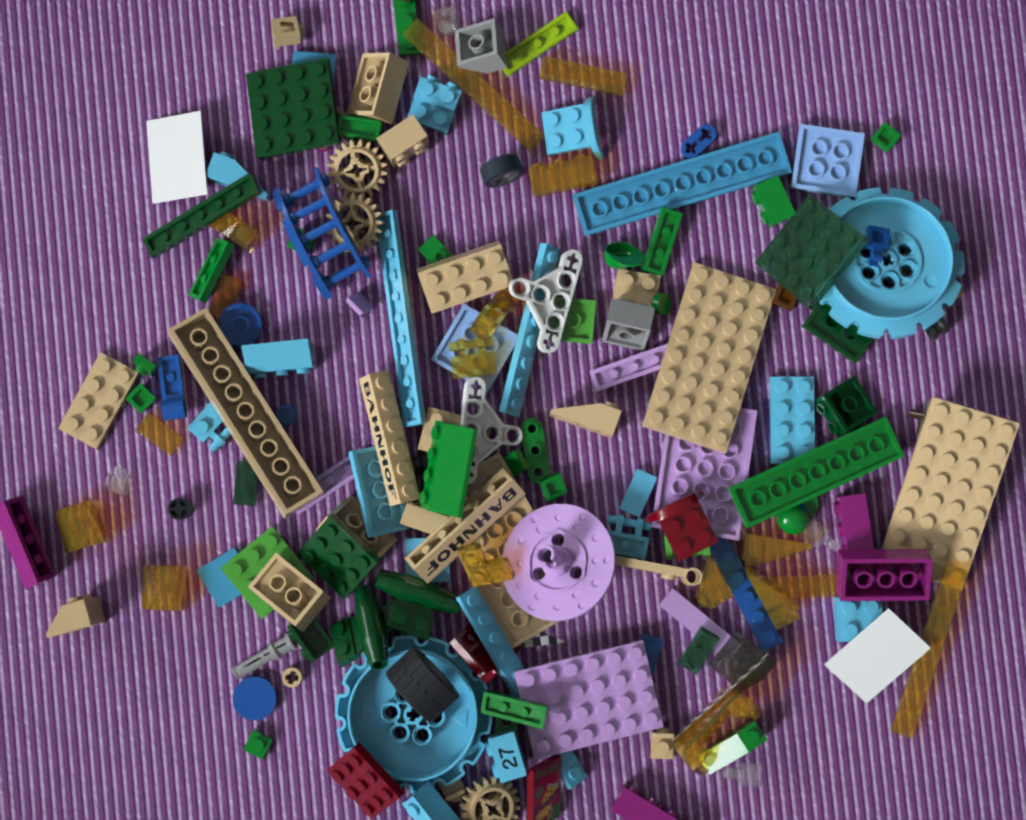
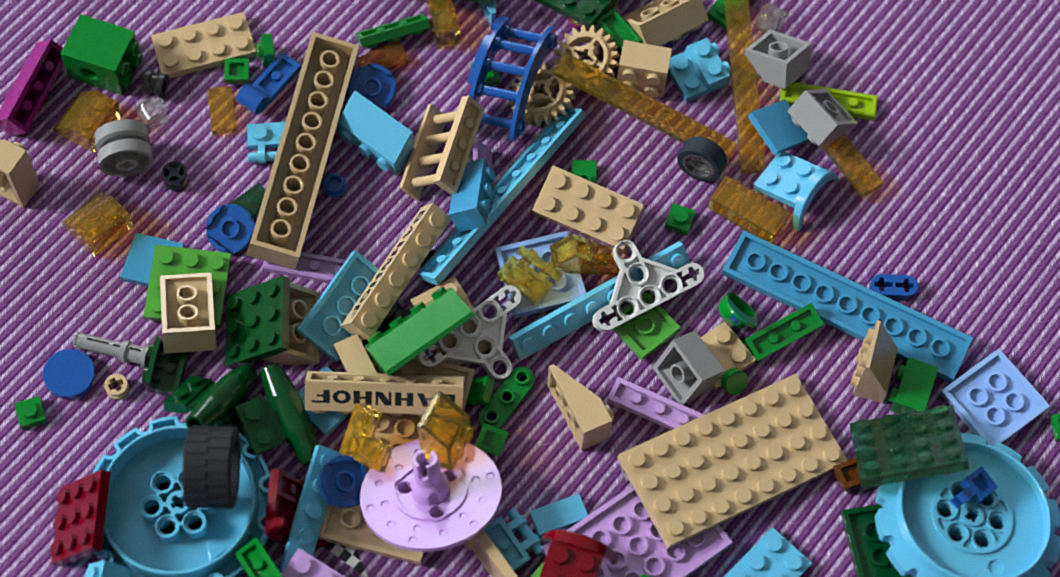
camera: 40 degrees right, 20 degrees down
(45, 476) = (101, 54): none -> green brick
(98, 459) = (155, 83): none -> pearl dark grey wheel
(131, 526) = (123, 148): none -> light grey wheel
(253, 509) = (230, 228): none -> blue tile
(346, 320) = (456, 151): none -> tan fence
(384, 340) = (472, 201): none -> dark azure brick
(427, 170) = (636, 103): none -> clear yellow tile
(495, 604) = (342, 481): none -> blue tile
(523, 223) = (680, 219): none -> green plate
(527, 97) = (777, 128): none -> dark azure tile
(530, 518) = (444, 430): none -> clear yellow slope
(549, 65) = (821, 116): none -> light grey slope
(739, 212) = (874, 364): none -> tan slope

